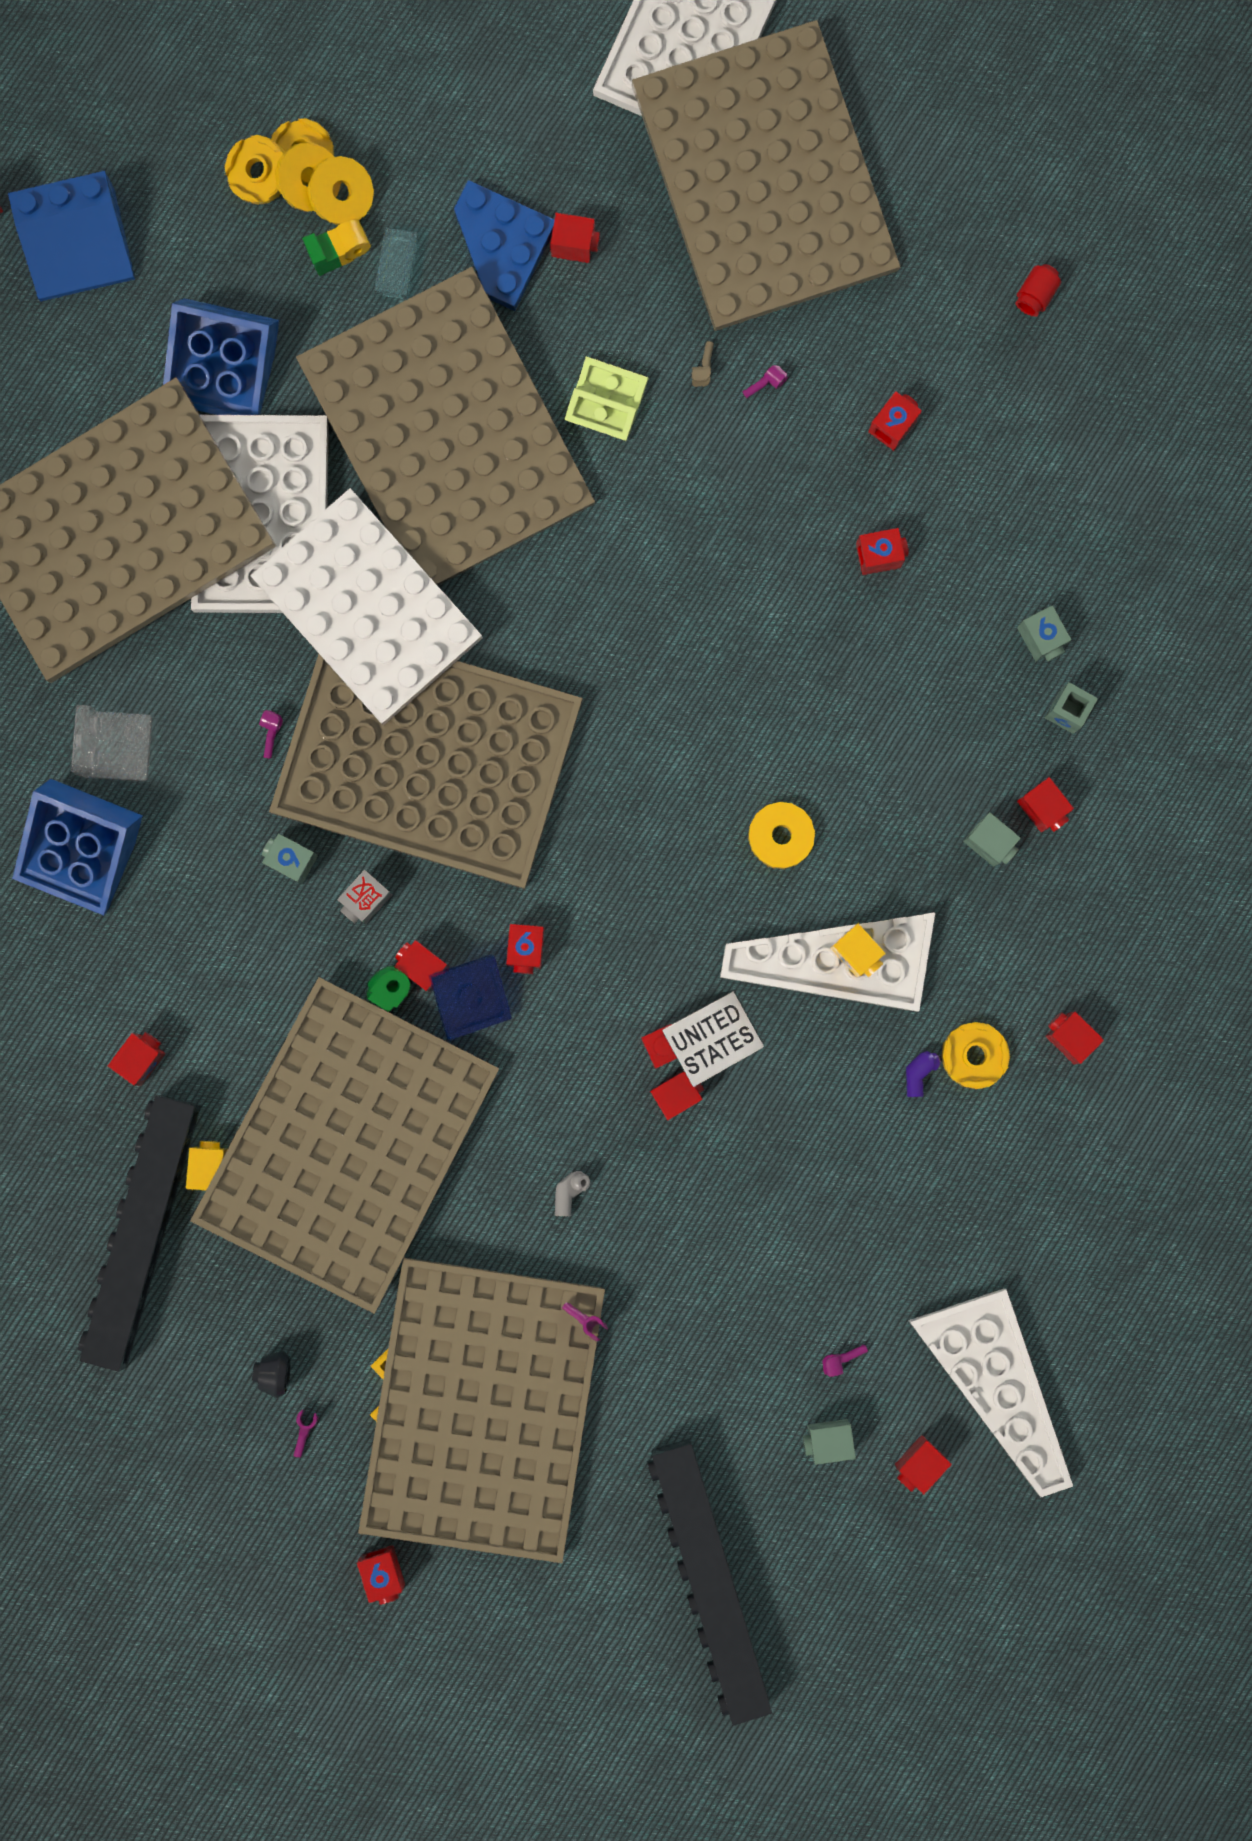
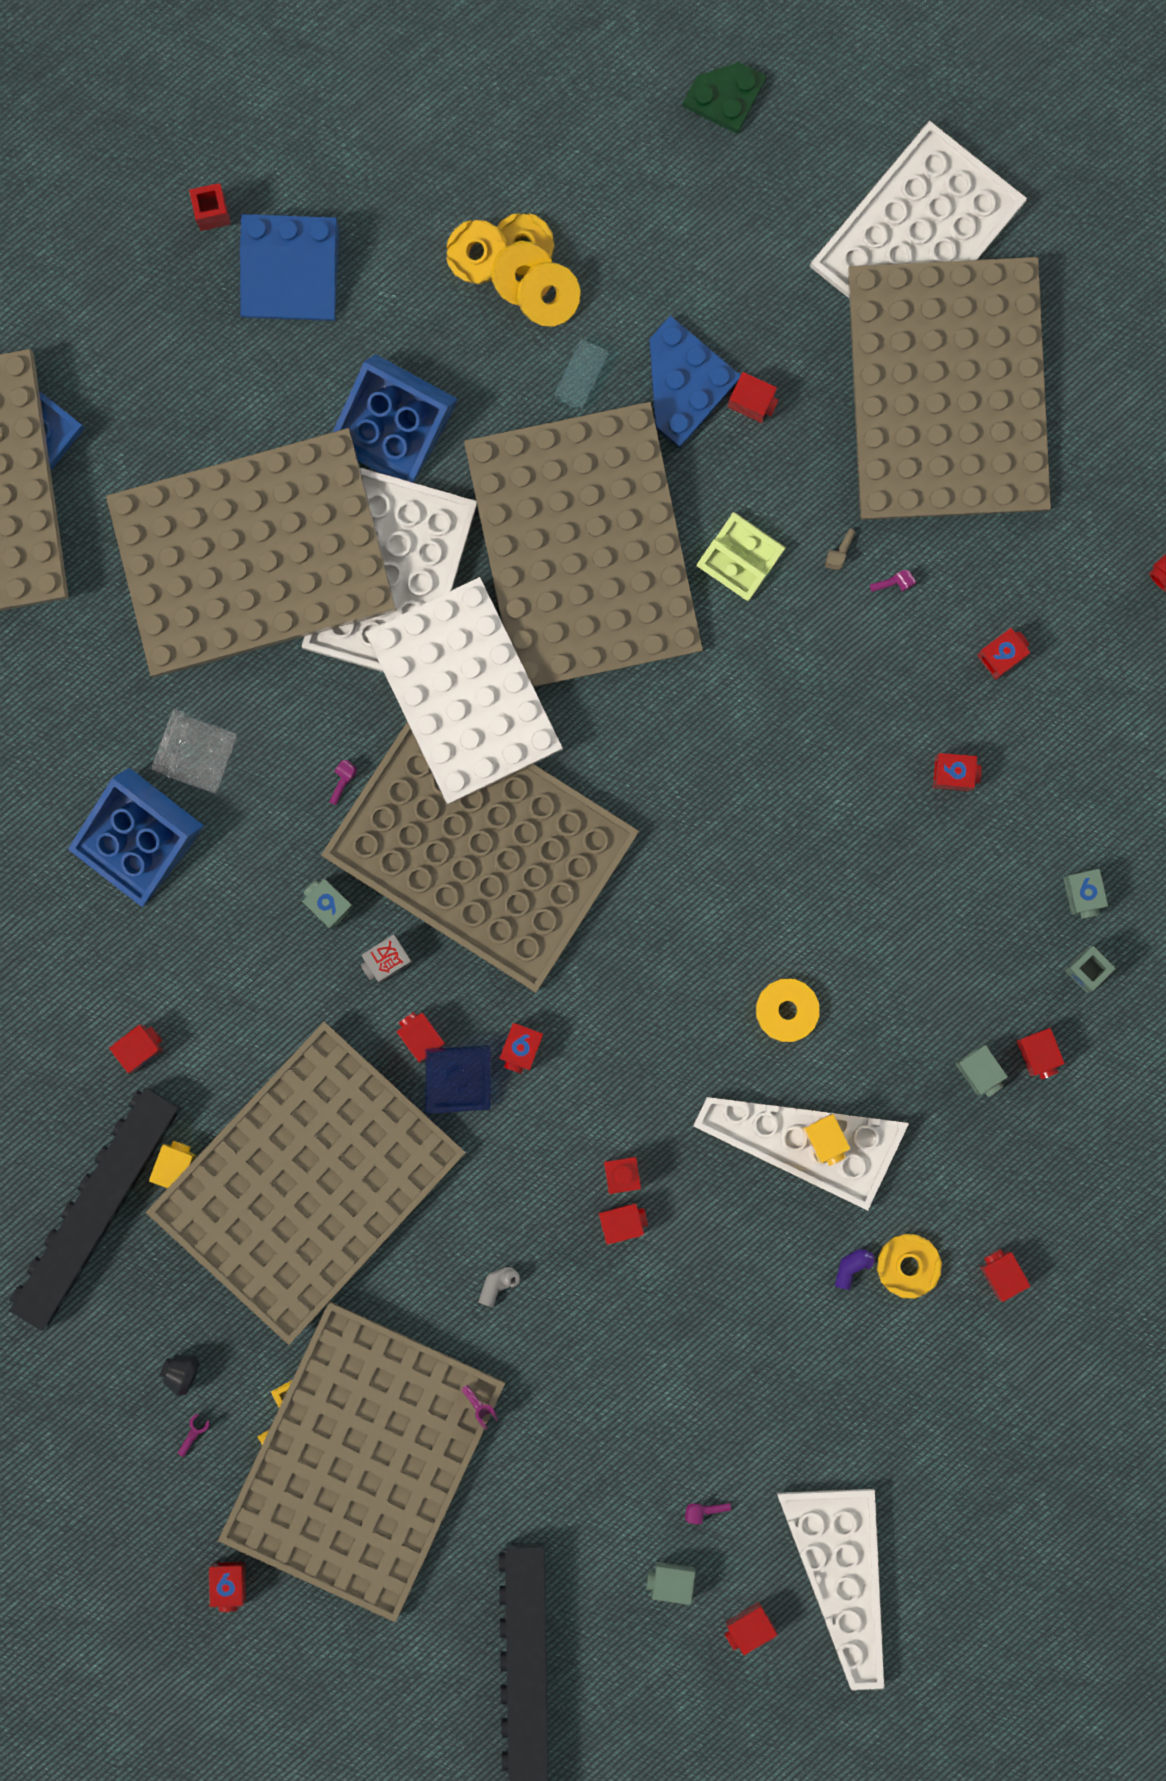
camera: 20 degrees right, 0 degrees up
(337, 246) = (531, 344): leg -> none
(388, 988) = (384, 1049): green piece -> none
(713, 1039) = (670, 1181): white sticker -> none

